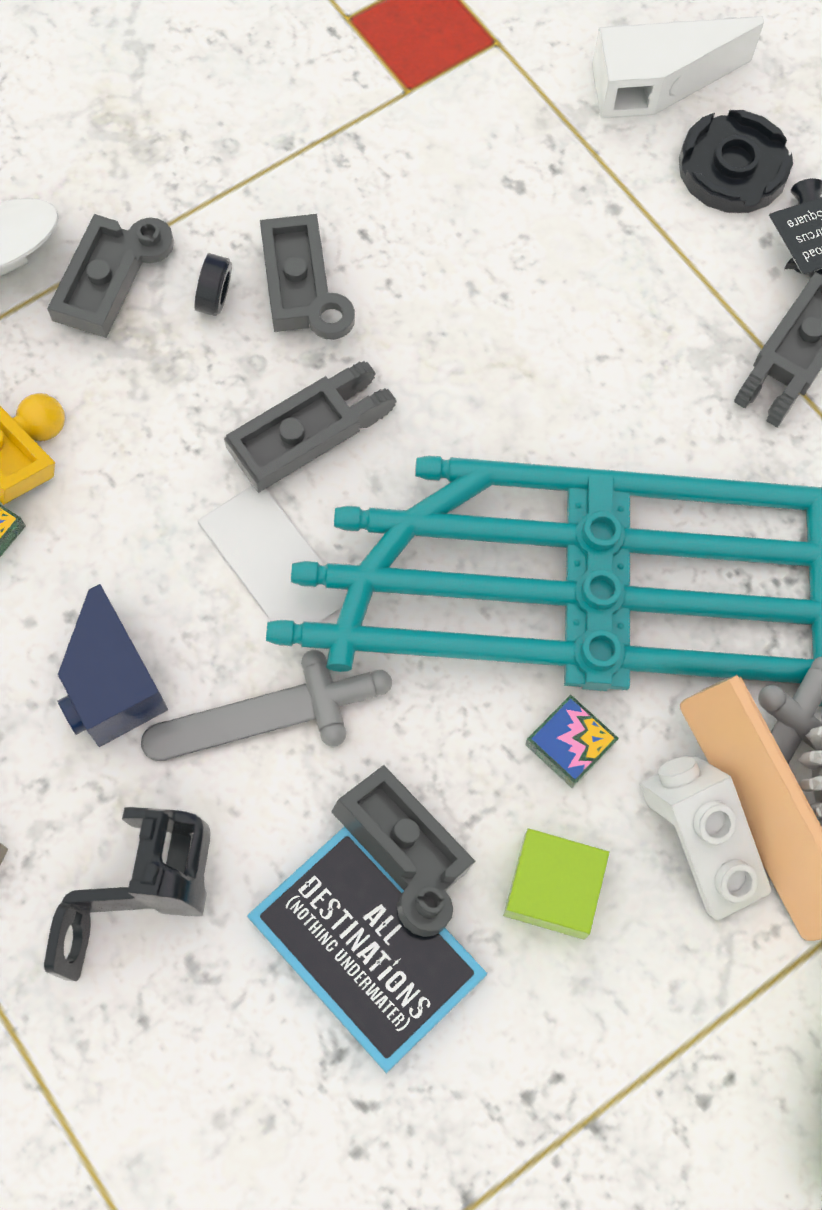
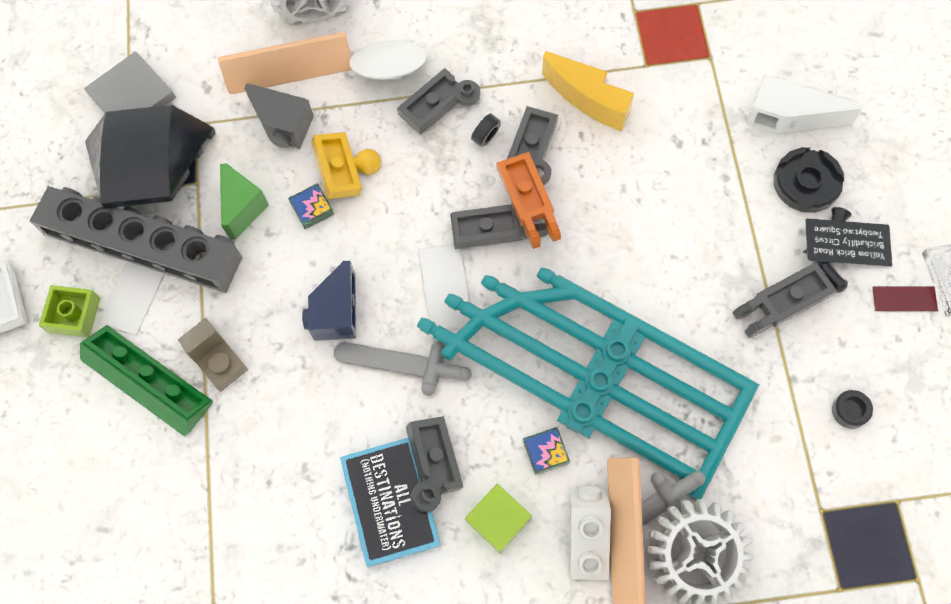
camera: 35 degrees right, 0 degrees up
(167, 887) = (299, 418): black piece -> none
(339, 159) = (587, 90): none -> yellow slope
(342, 357) = (528, 196): none -> orange hinge

